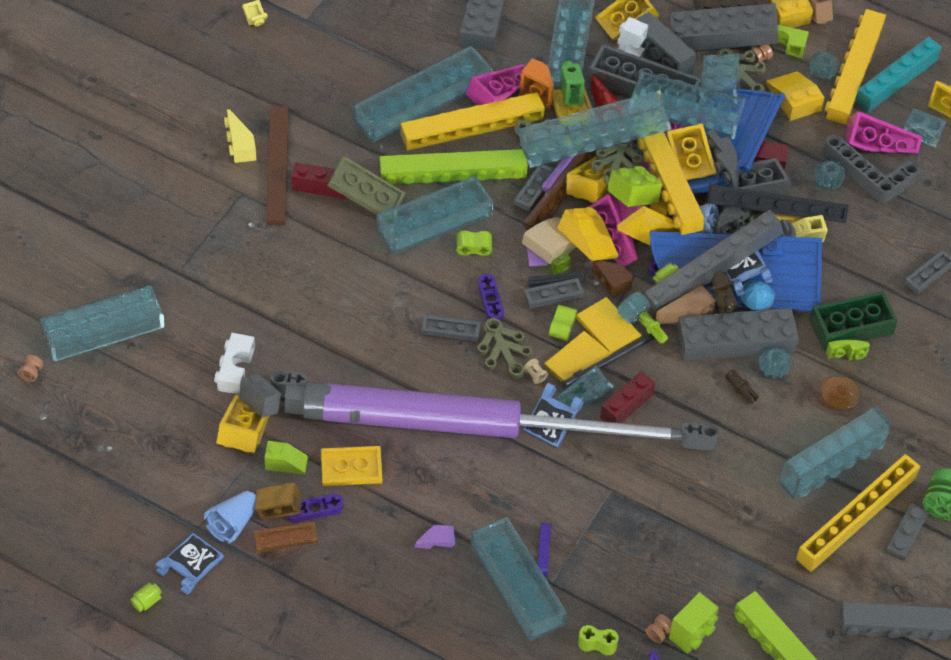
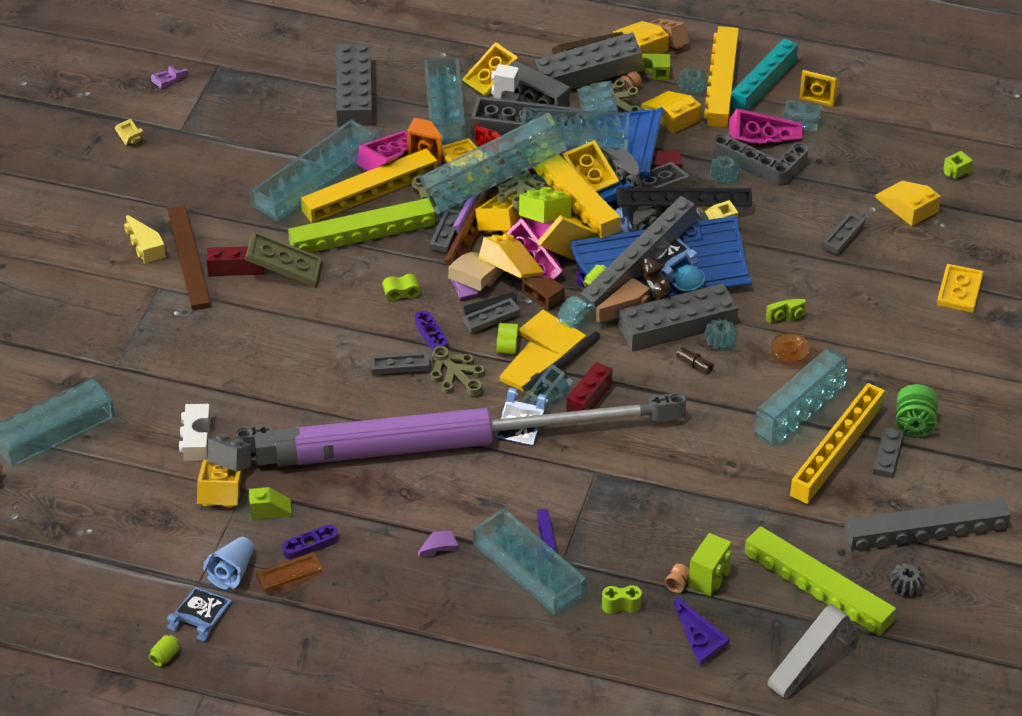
camera: 10 degrees left, 10 degrees down
(278, 501) = (274, 540): pearl gold brick -> none
(351, 466) = (336, 499): yellow tile -> none
(434, 215) = (356, 269): clear light blue brick -> none
(531, 370) = (493, 384): tan bush -> none
(560, 264) = (490, 289): clear neon green tile -> none
(571, 75) = (458, 129): bright green torso -> none
(653, 327) = (595, 325): lime axle -> none
(854, 319) = (784, 281): dark green brick -> none

